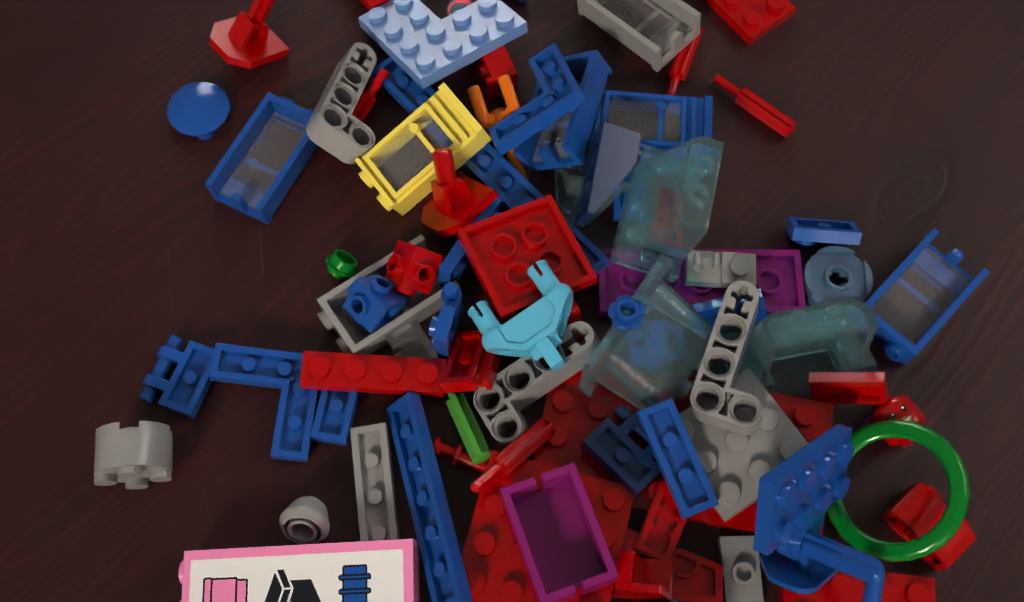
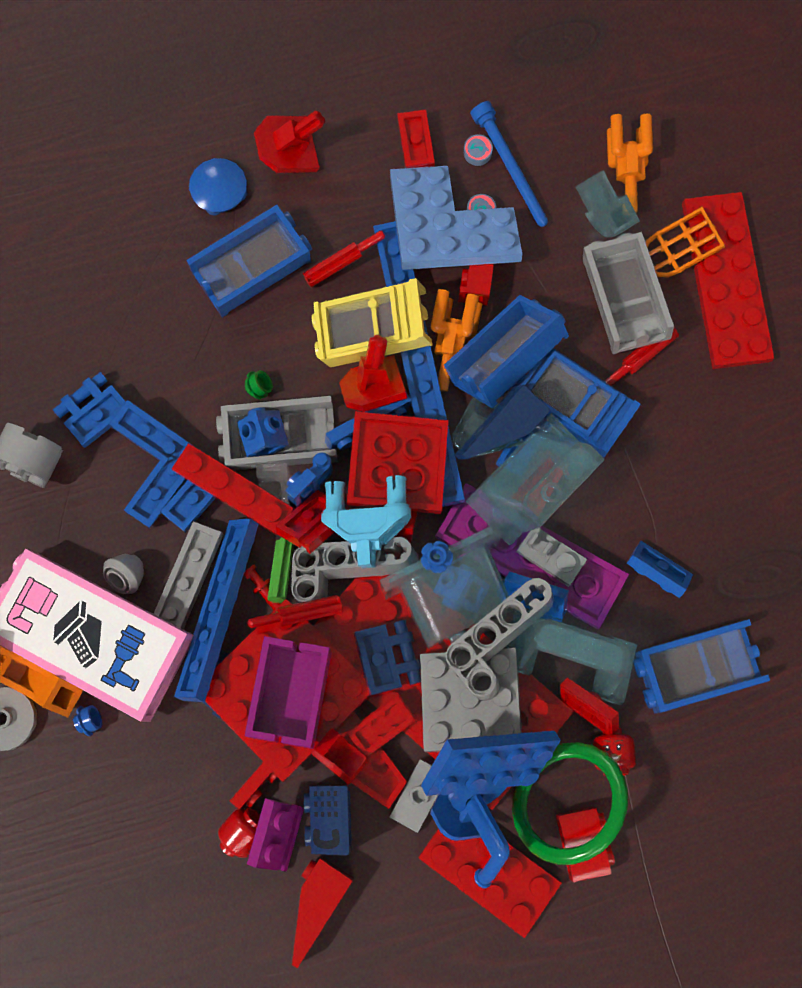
camera: 30 degrees right, 10 degrees up
(332, 120) = (337, 242): light grey beam -> none
(413, 268) = (307, 422): red brick -> none
(559, 97) = (500, 344): blue plate -> none
(677, 458) = (414, 686): blue plate -> none
(758, 107) = (680, 431): red axle -> none
(838, 260) = (661, 609): sand blue plate -> none

